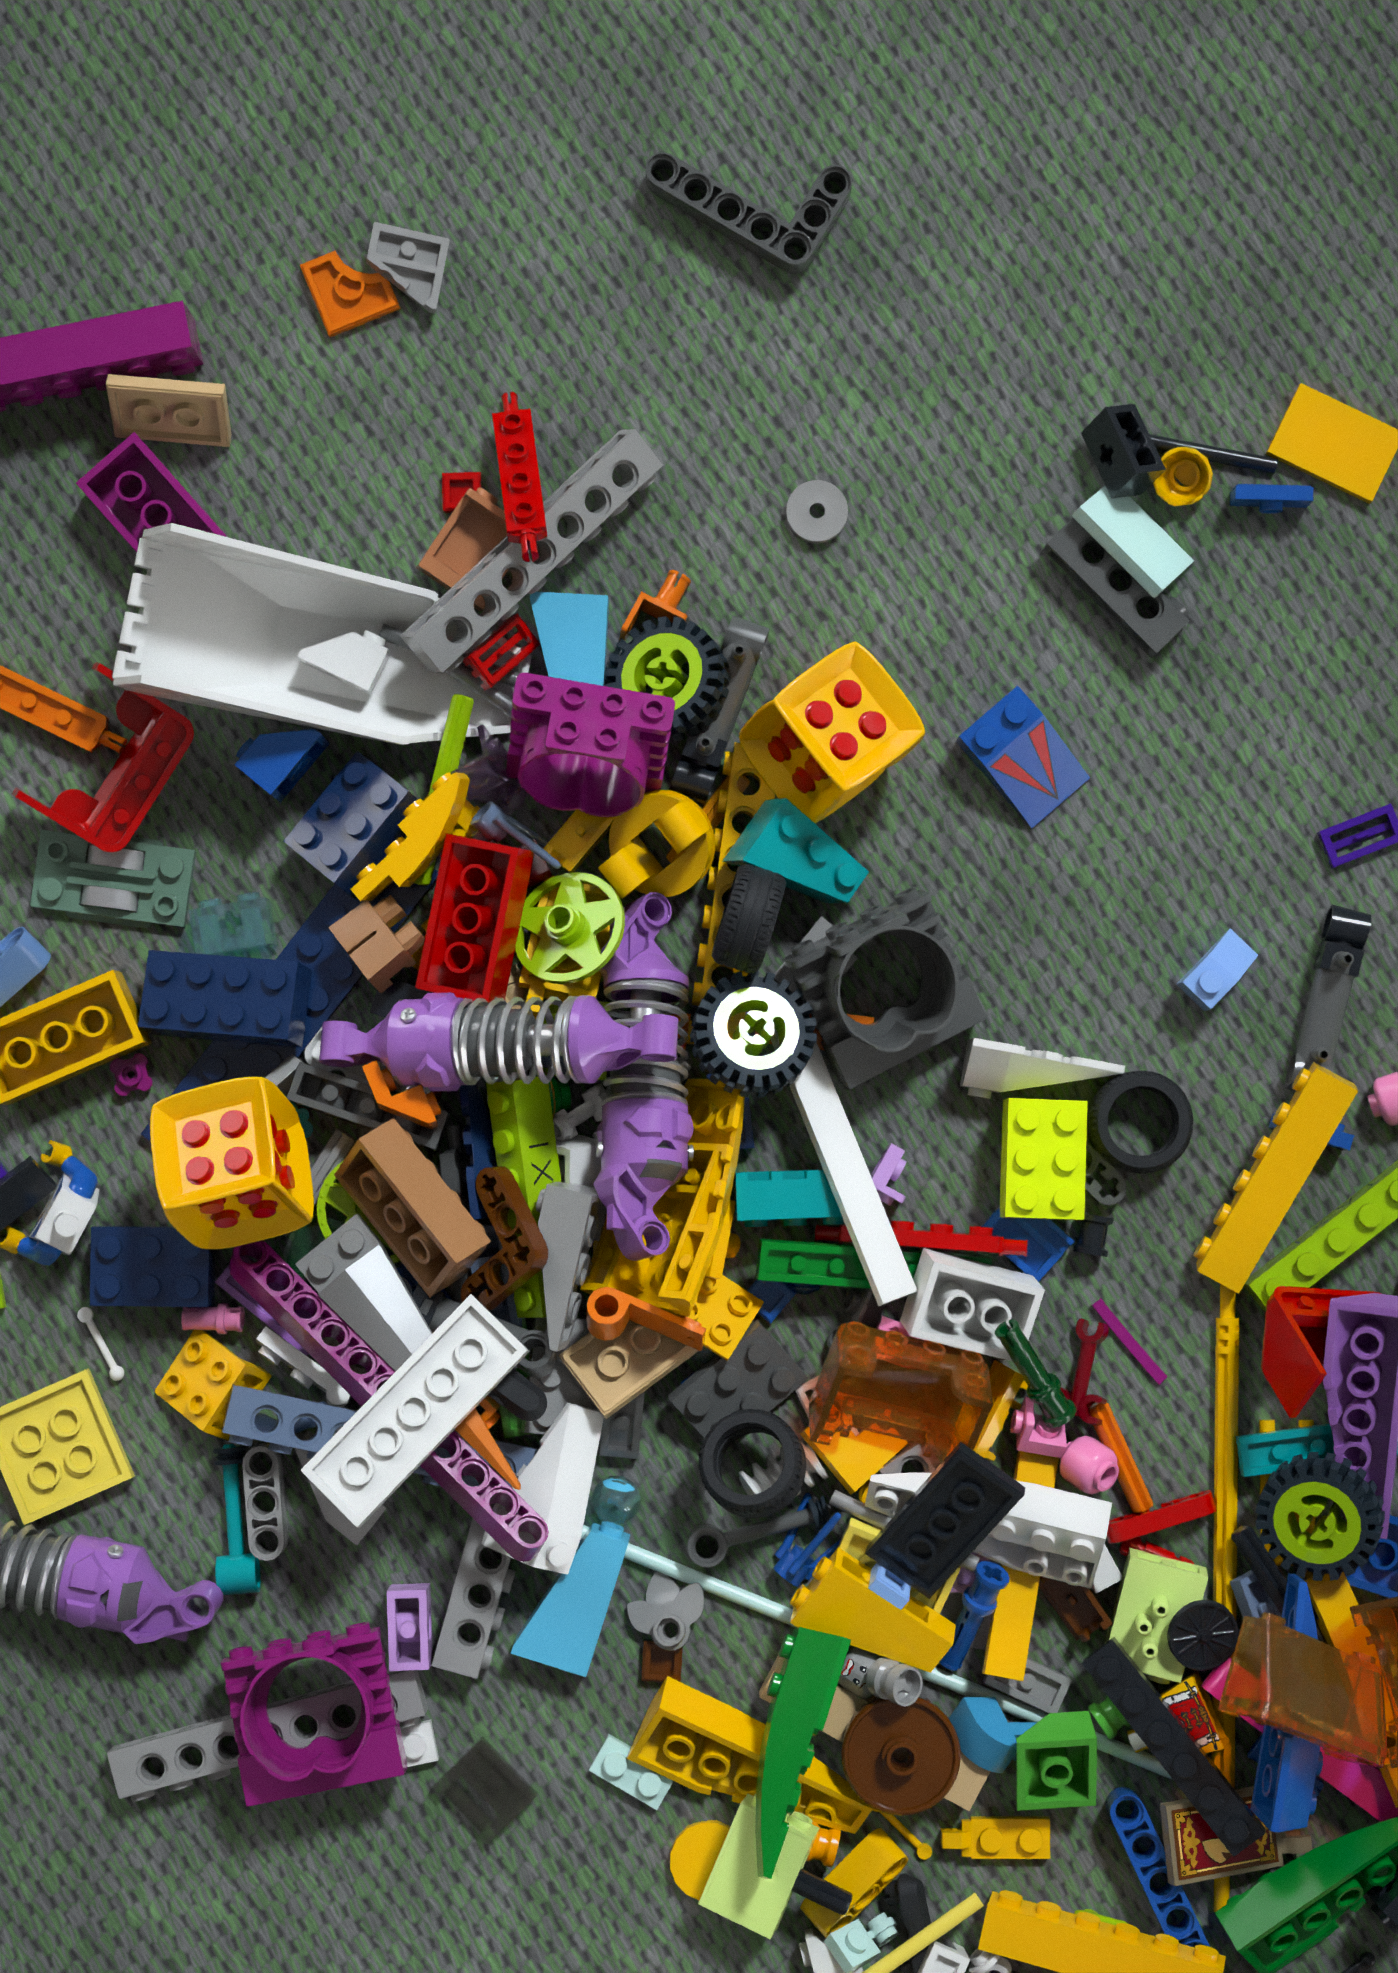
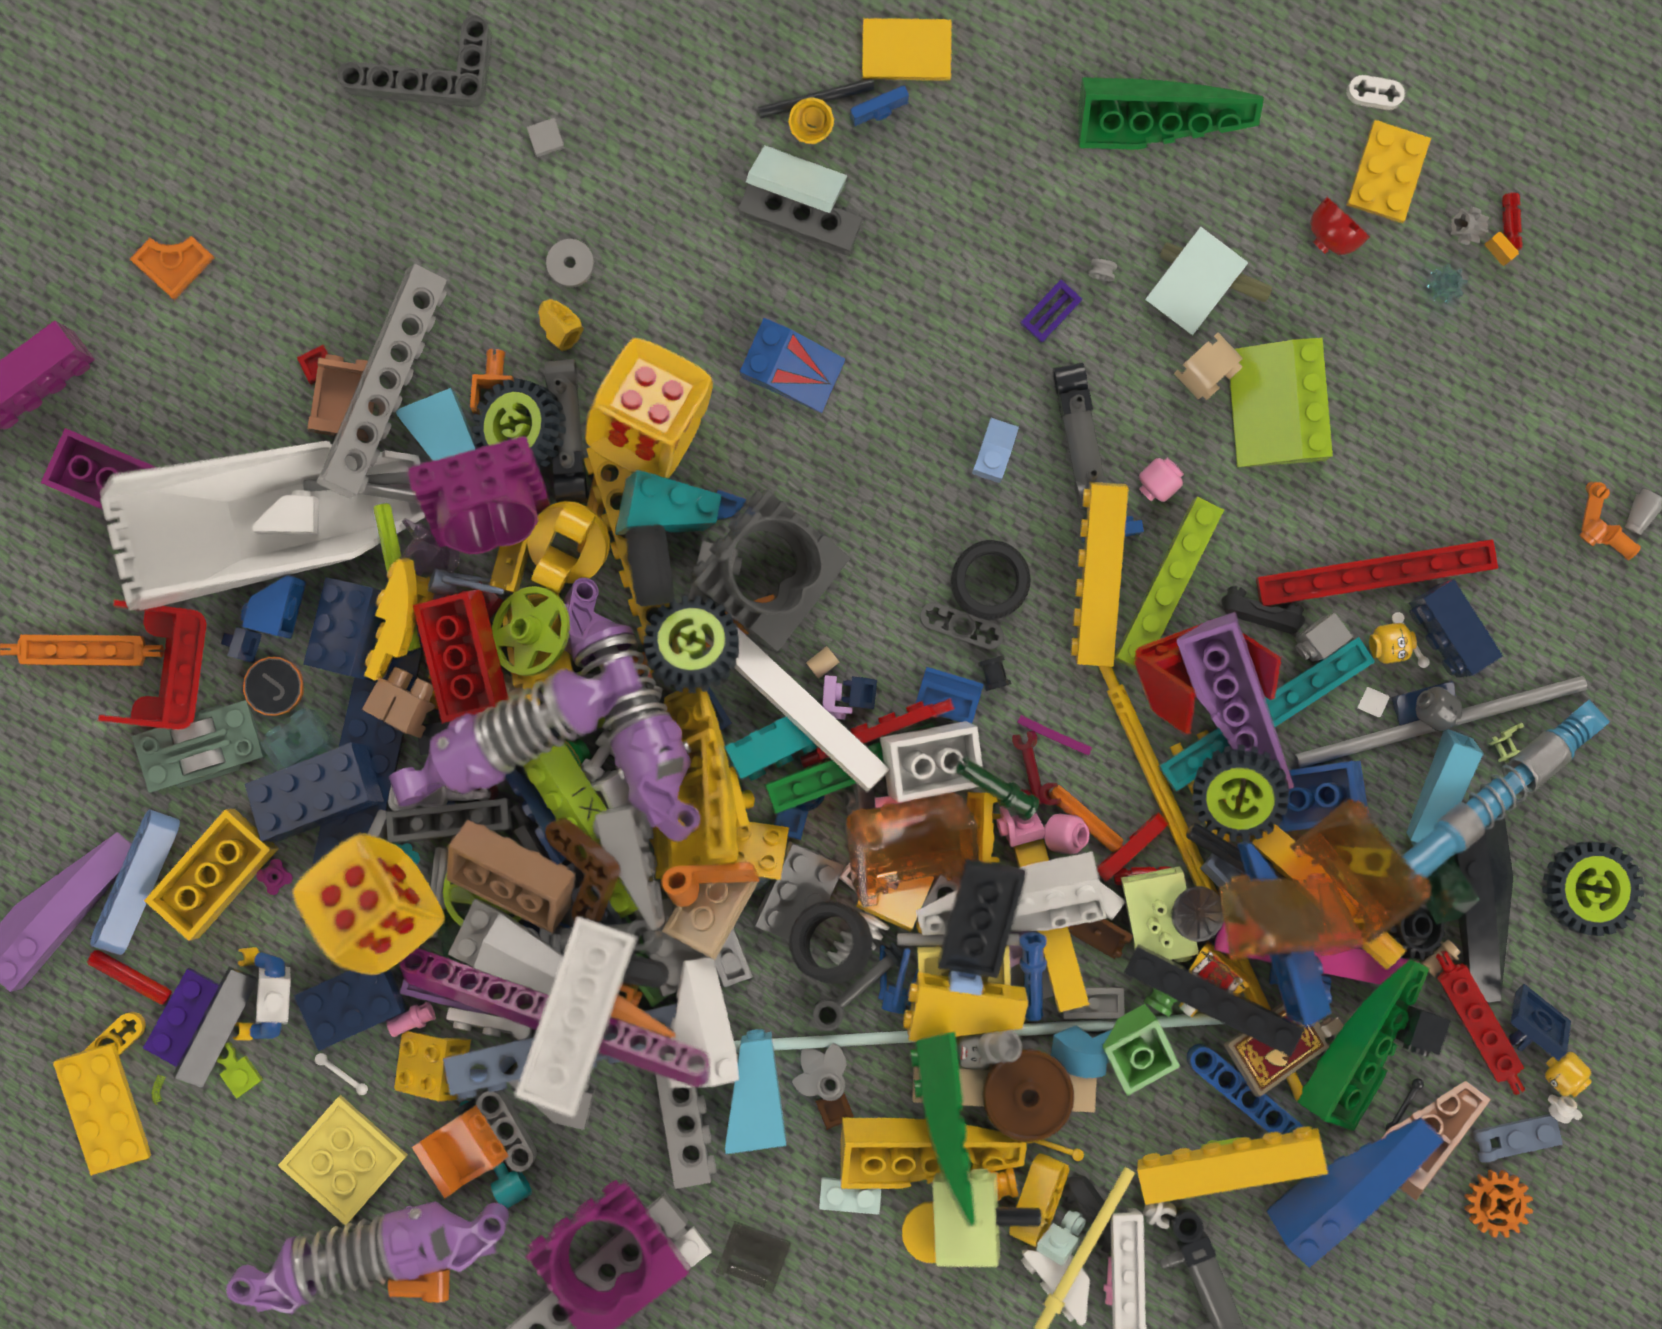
camera: 25 degrees left, 0 degrees up
(88, 1644) = (430, 1287): none -> orange piece
(169, 410) = (83, 401): tan tile -> none
(200, 1502) = (460, 1151): none -> orange panel
(221, 783) = (242, 644): none -> dark blue tile
(234, 849) = (273, 686): none -> black tile
(409, 261) = (204, 221): light grey wing -> none
(409, 1627) = (647, 1168): lavender brick -> none
(410, 1104) = (475, 805): orange slope -> none
(480, 668) = (385, 479): red tile -> none
(519, 476) = (349, 333): red plate -> none
(616, 1500) = (750, 1012): clear light blue piece -> none
(771, 579) = (560, 324): none -> yellow rock
(857, 349) = (545, 137): none -> light grey tile
(872, 887) = (729, 505): none -> blue tile
(895, 1125) = (822, 662): none -> tan hinge
(924, 1184) = (862, 692): none -> dark blue tile
(1000, 1837) = (1125, 1120): yellow hinge -> none
(1009, 1067) = (881, 585): white wedge -> none
(1043, 1159) = (934, 636): neon yellow brick -> none
(1123, 451) = (761, 121): black brick -> none

